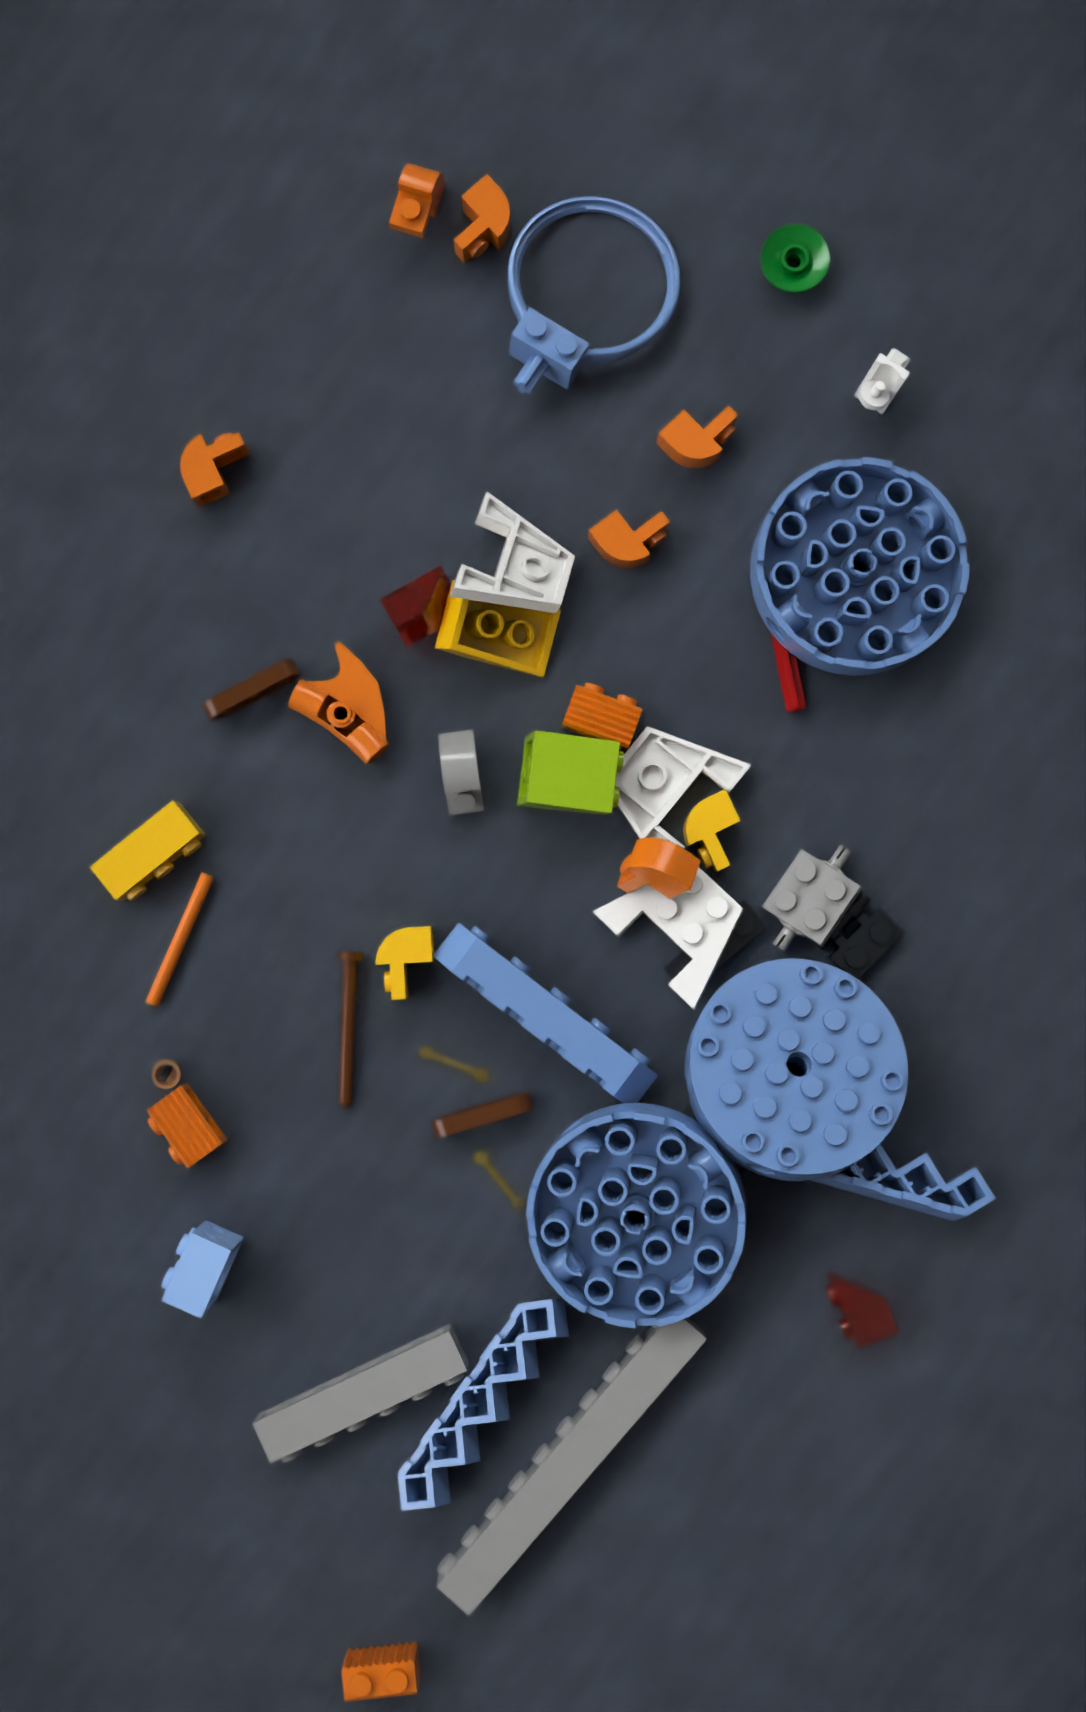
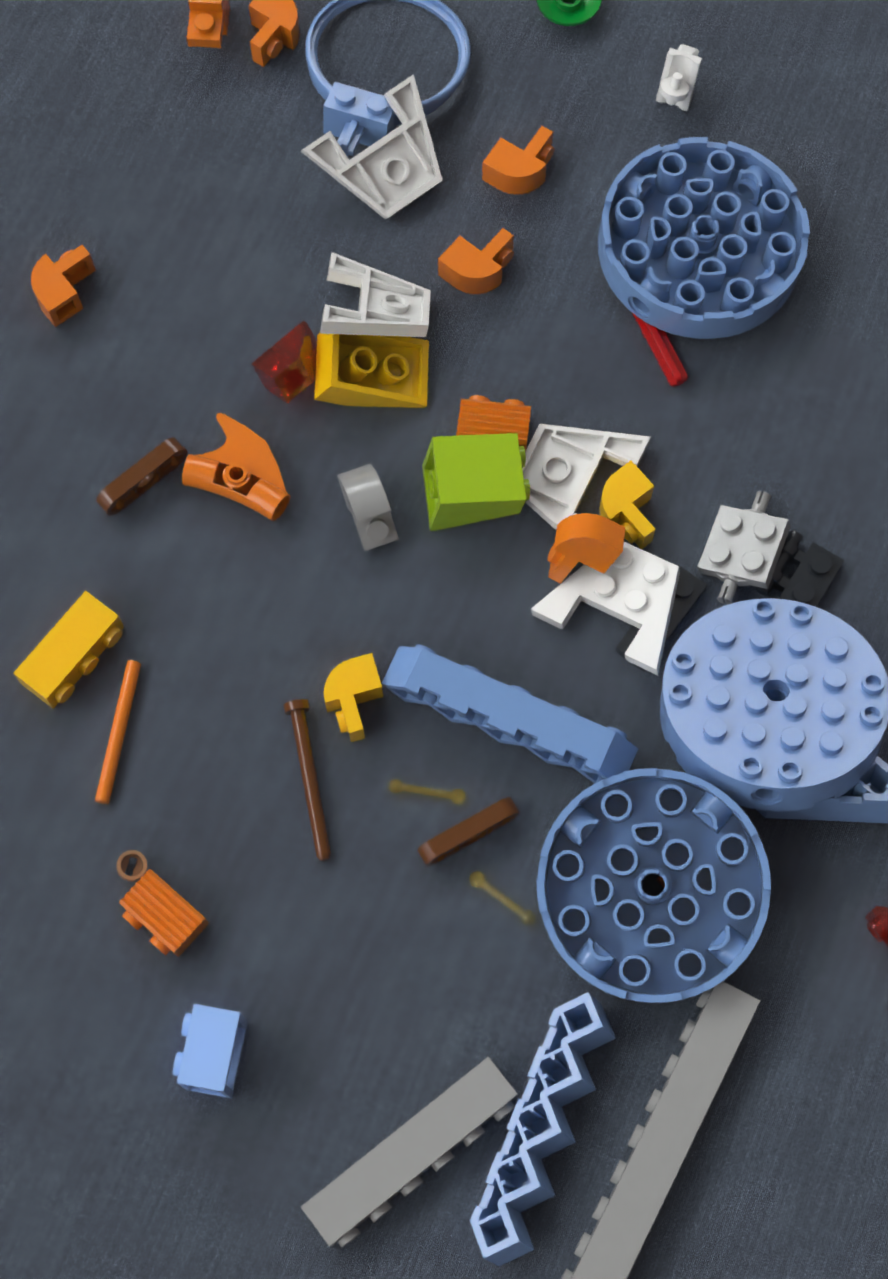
camera: 15 degrees left, 15 degrees down
(566, 416) = (394, 167): none -> white wing

